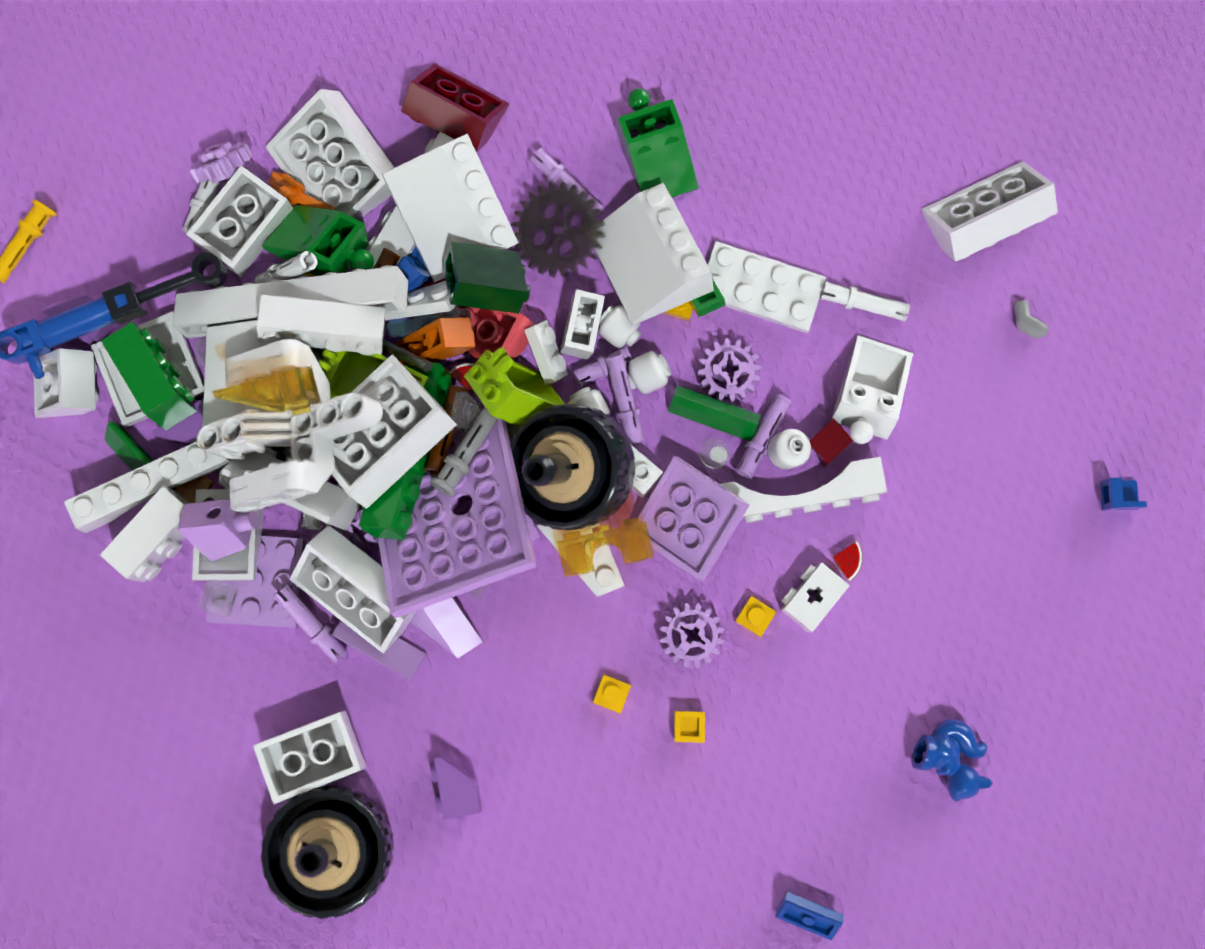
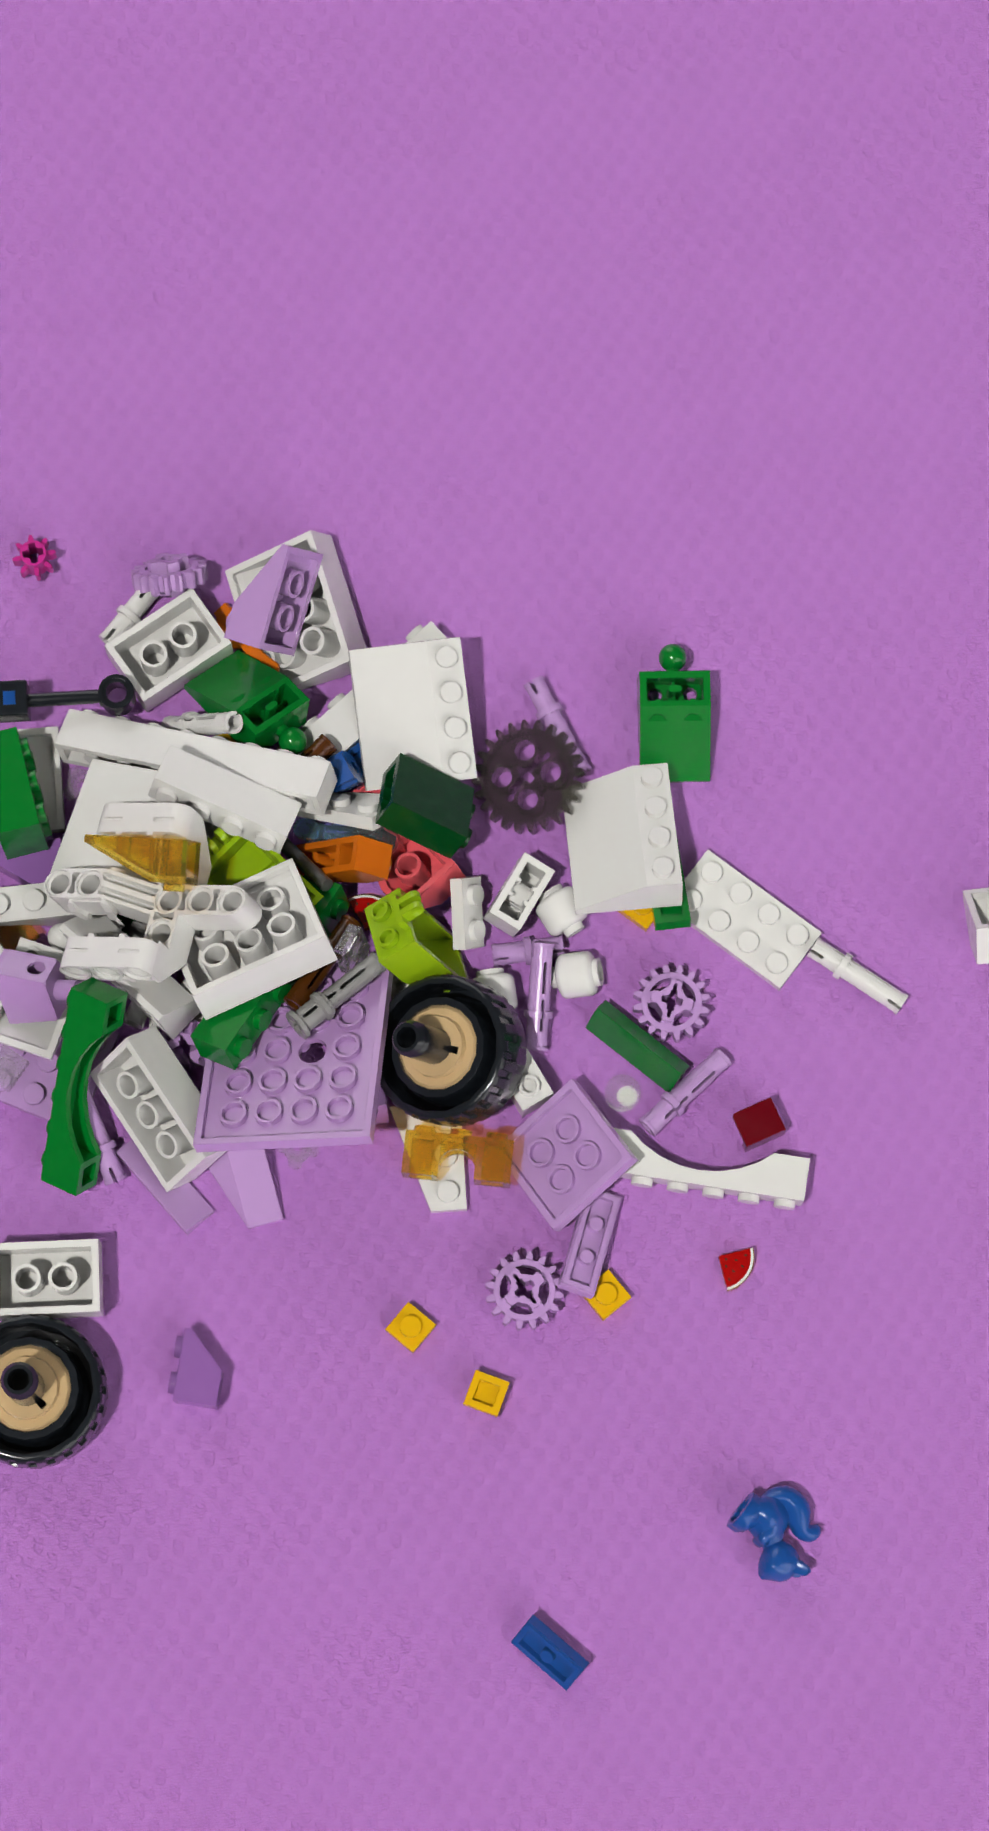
camera: 20 degrees right, 5 degrees down
(102, 182) = (31, 547): none -> dark pink gear
(294, 646) = (71, 1149): none -> green arch
(310, 153) = (275, 602): none -> lavender slope
(453, 106) = (457, 595): dark red slope -> none
(731, 584) = (589, 1246): none -> lavender tile
(789, 449) = (708, 1115): white head -> none
(829, 588) = (669, 1312): white brick -> none
(872, 389) = (830, 1079): white slope -> none

